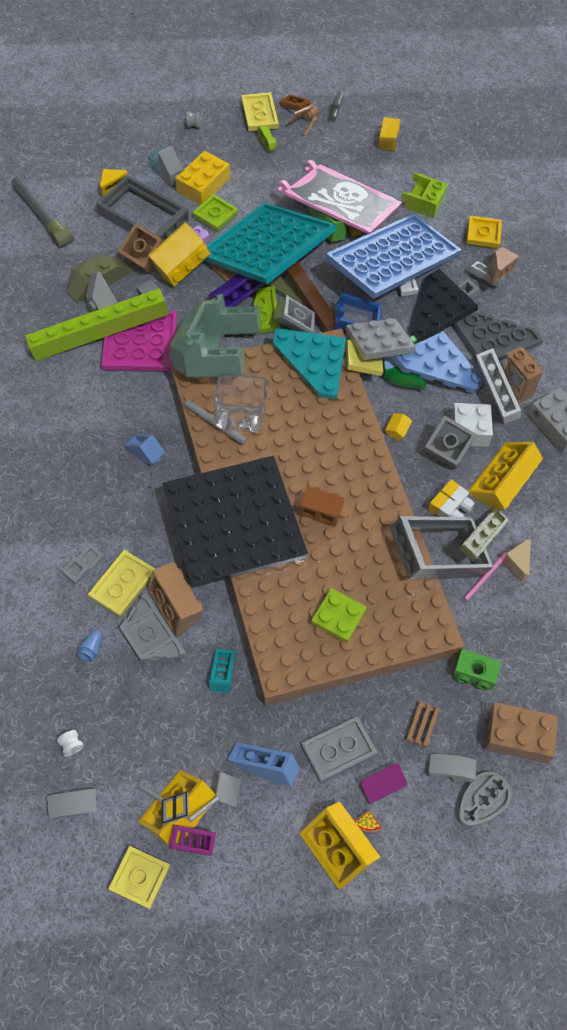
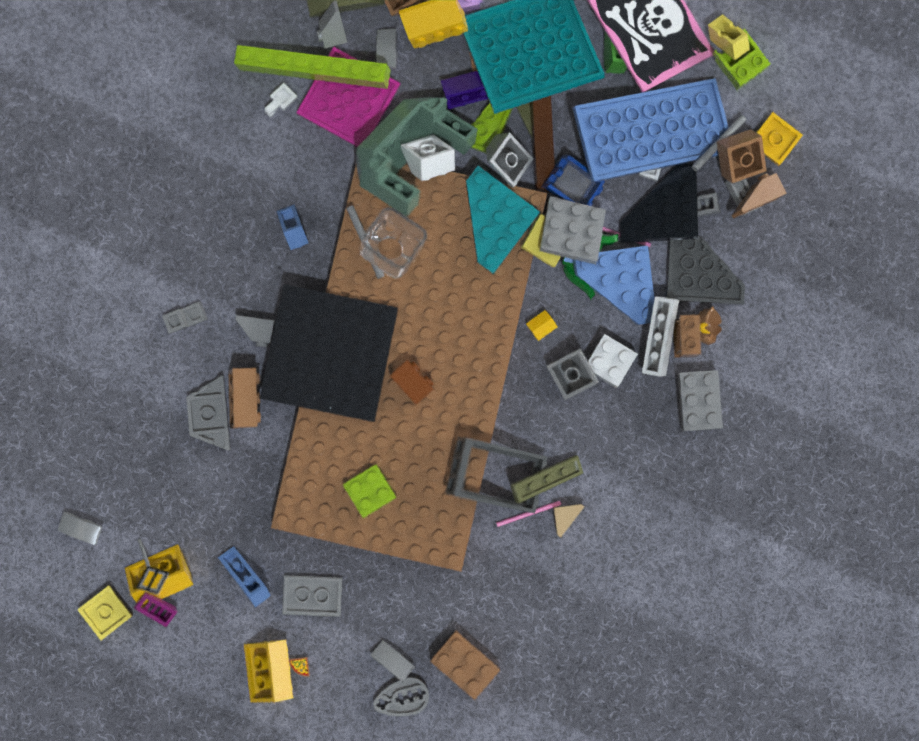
camera: 30 degrees right, 25 degrees up
(70, 743) = (100, 478): white wheel -> none
(81, 363) = (282, 98): none -> white plate
(89, 648) = (154, 401): medium blue cone -> none
(121, 583) = (208, 355): light yellow plate -> none
(155, 540) = (257, 329): none -> light grey slope
(222, 683) = (254, 489): teal slope -> none
(226, 792) = (203, 584): light grey piece -> none
(237, 336) = (429, 157): none -> white slope
(383, 783) = (330, 642): magenta slope -> none
(410, 181) = (728, 37): none -> light yellow brick
(428, 708) = (404, 602): medium nougat tile -> none
(446, 248) = (713, 148): none -> light grey bar
(450, 501) = (547, 427): hips -> none
(470, 244) = (741, 156): none -> medium nougat brick
(487, 666) = (459, 582): bright green brick -> none
(506, 474) = (609, 428): yellow slope -> none

